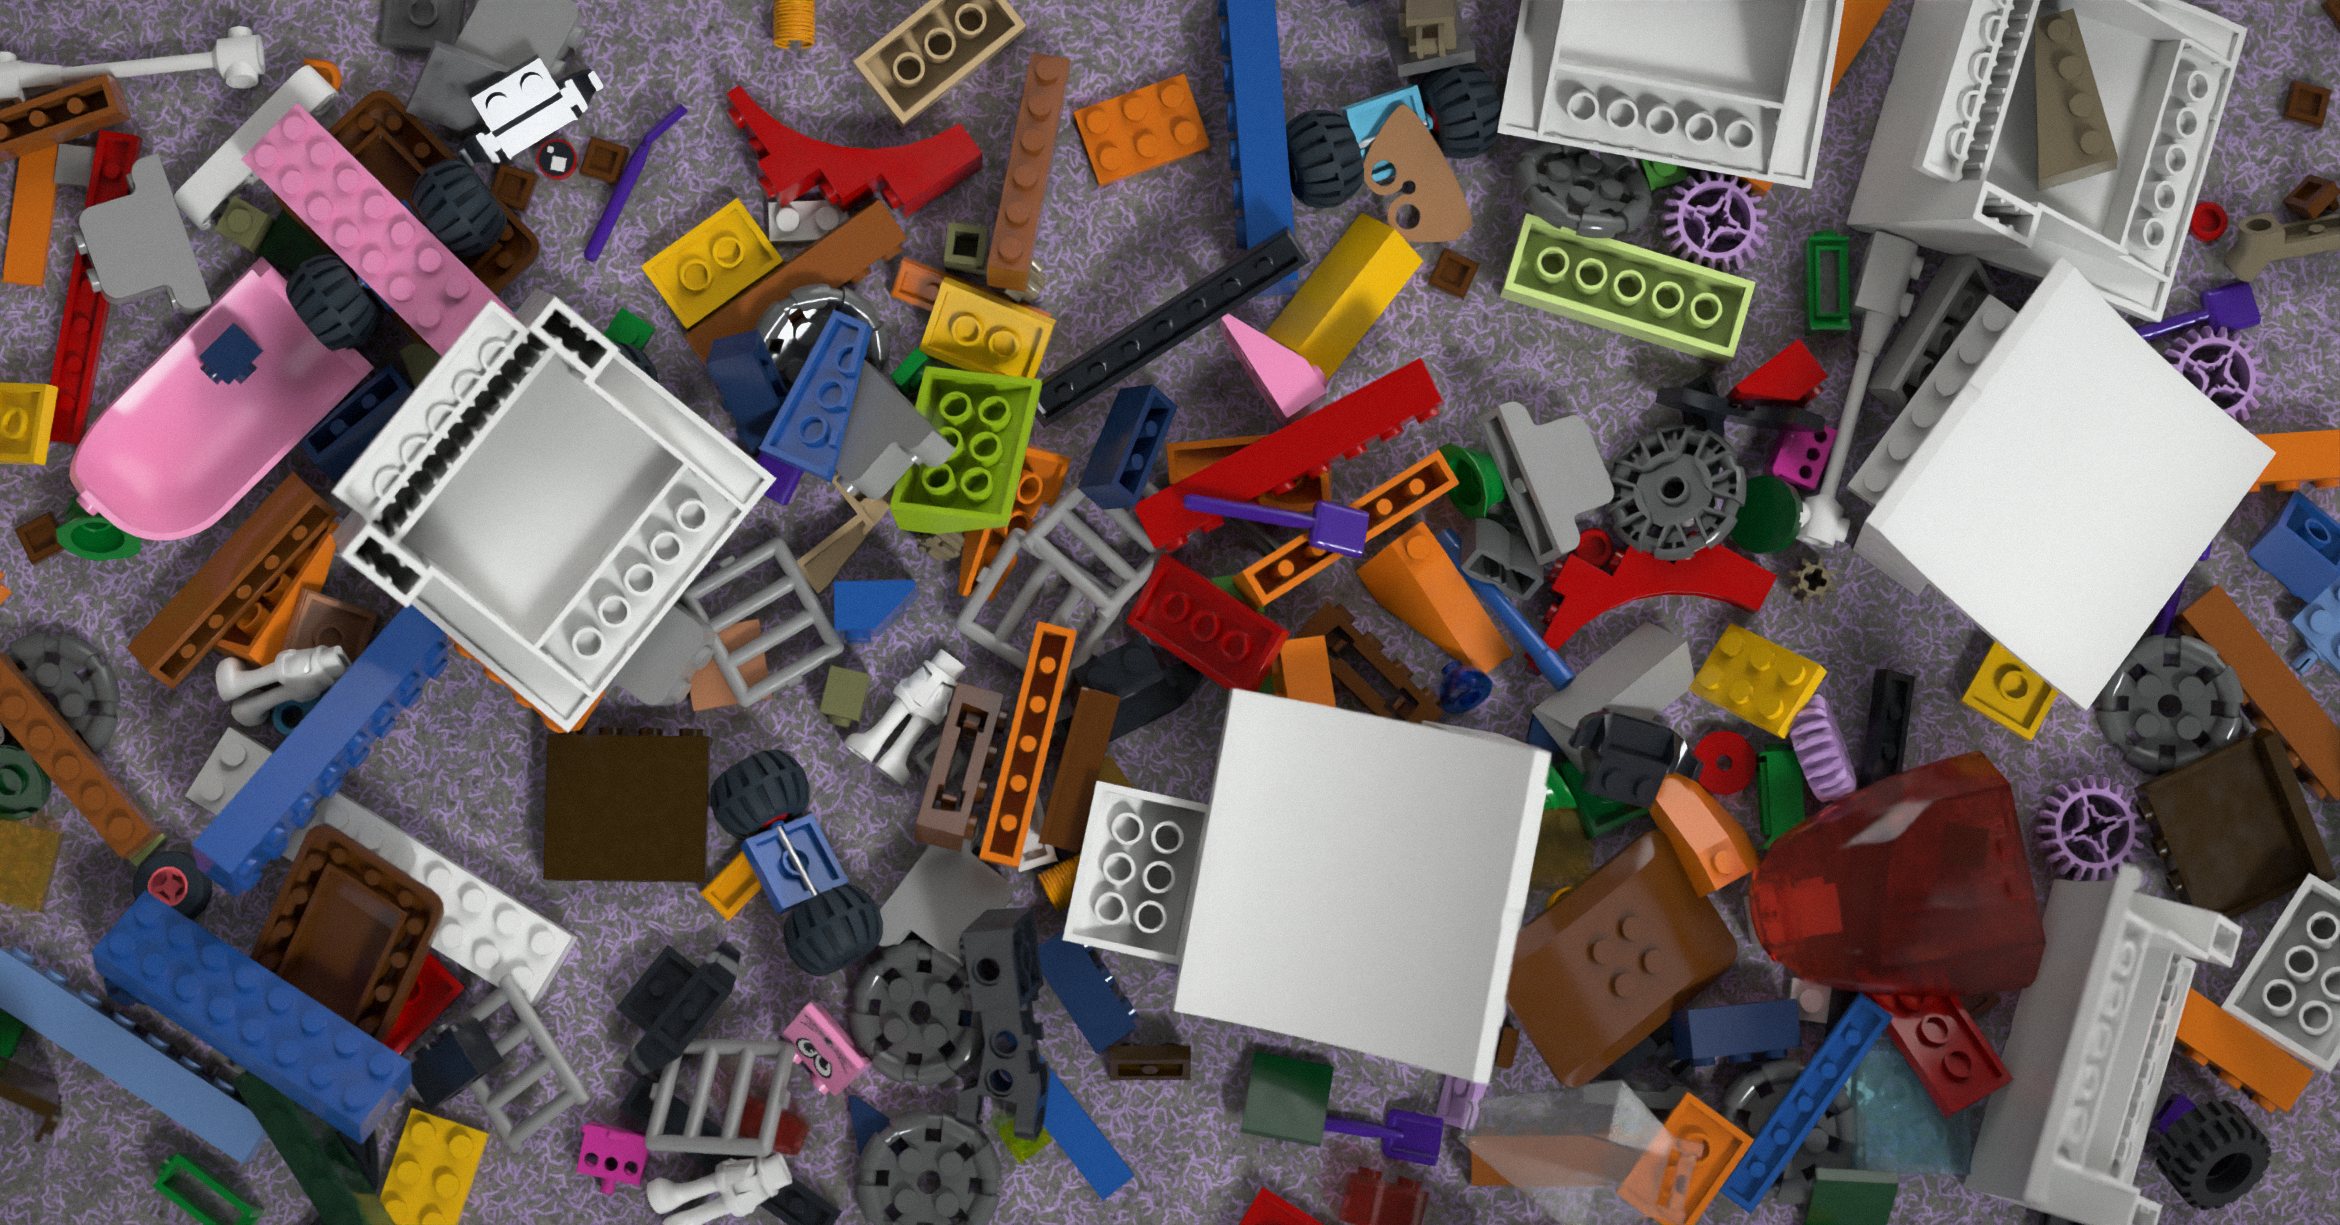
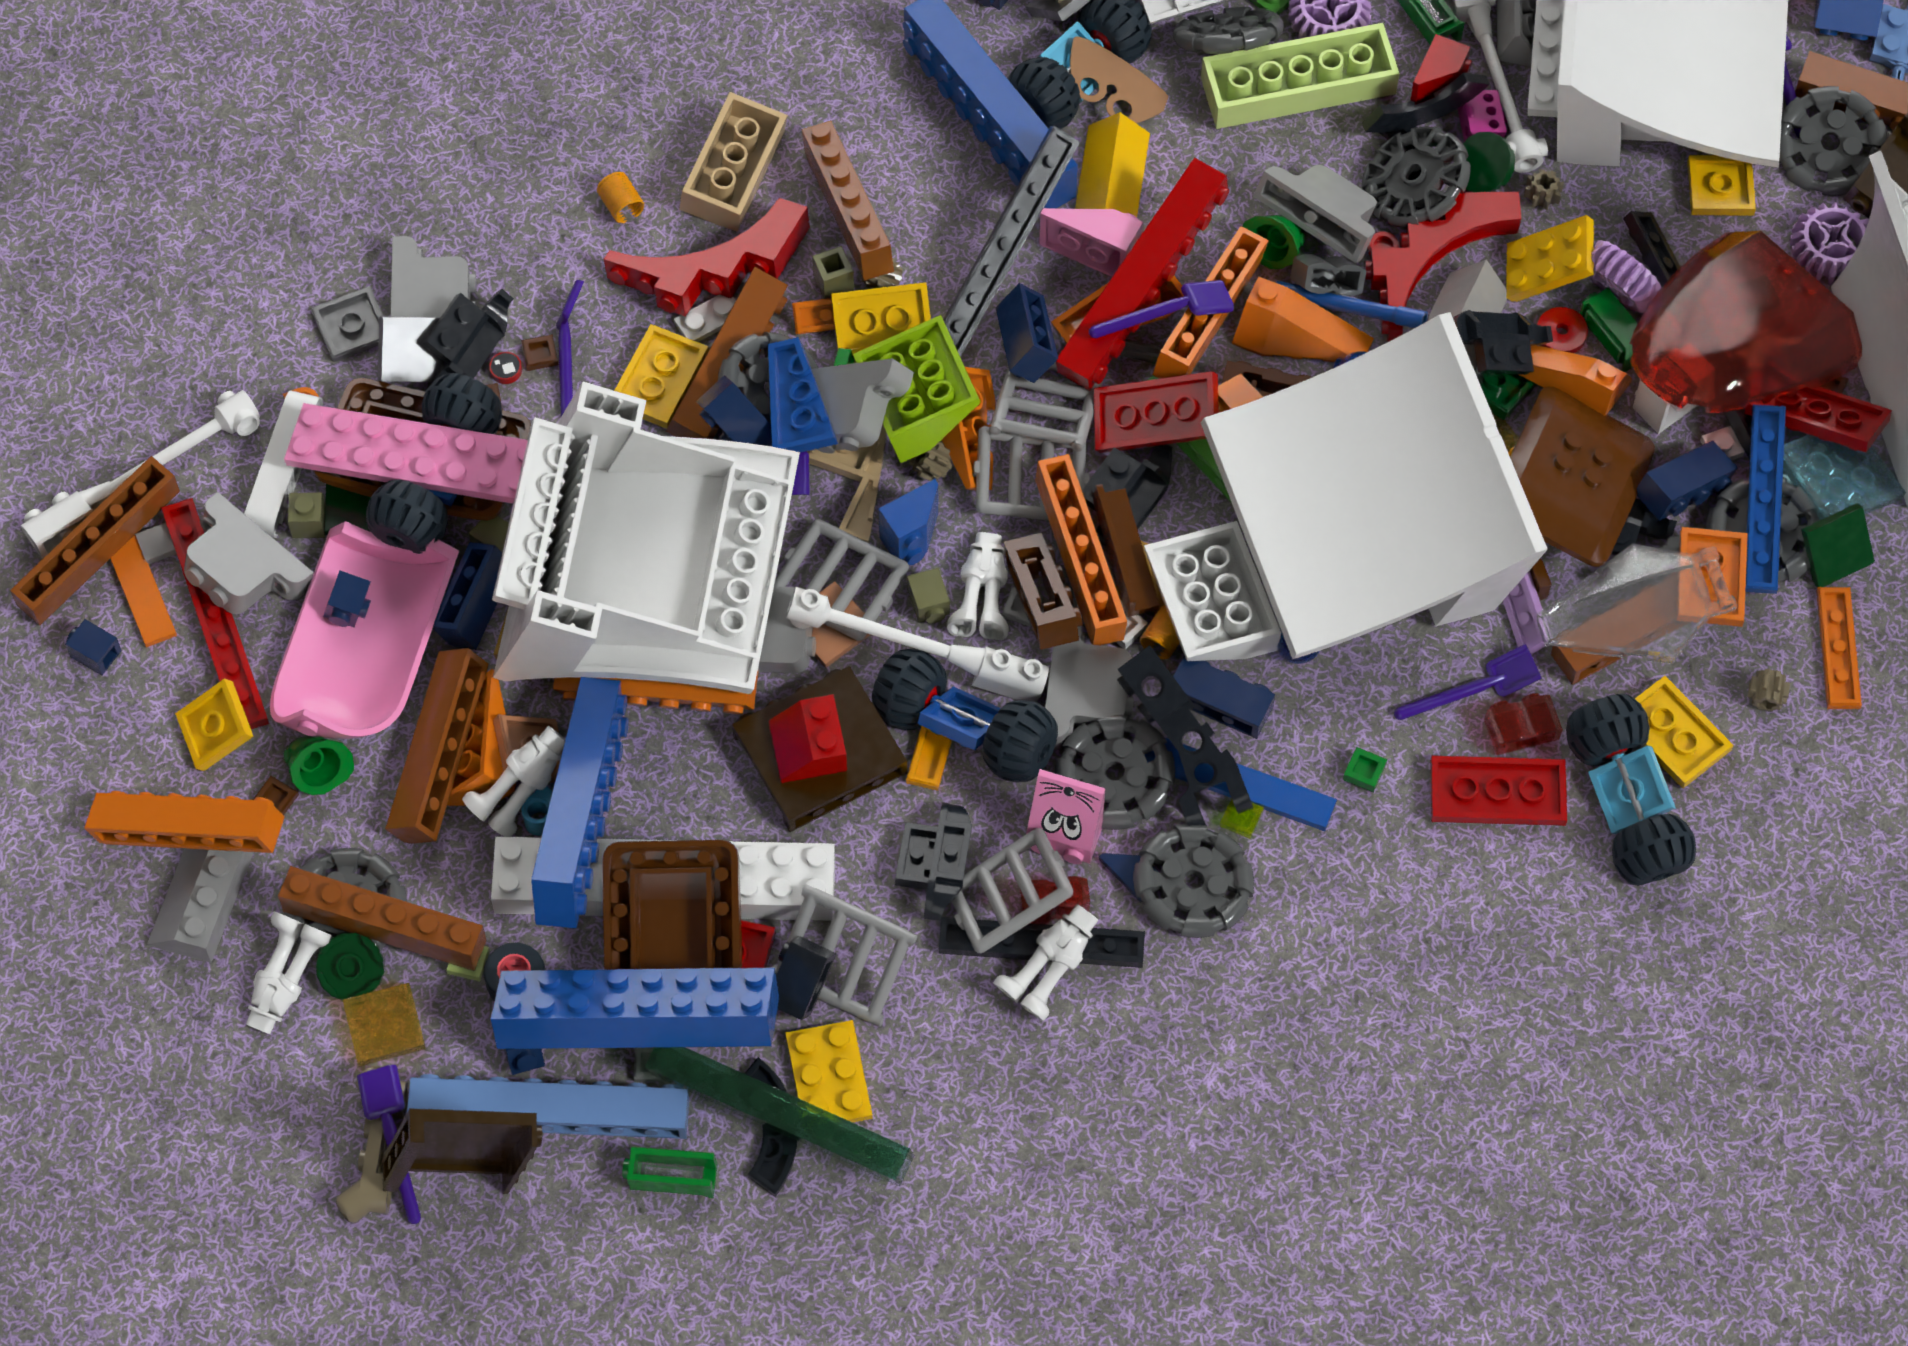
camera: 25 degrees left, 20 degrees down
(610, 806) = (808, 740): none -> red slope
(613, 1142) = (951, 975): dark pink piece -> none
(848, 814) = (992, 668): none -> white bar
(1142, 130) = (905, 149): orange plate -> none
(1150, 1062) = (1299, 718): dark brown plate -> none
(1184, 1159) = (1365, 769): none -> green plate
(1287, 1099) = (1410, 691): dark green tile -> none
(1453, 274) = (1175, 130): reddish brown tile -> none

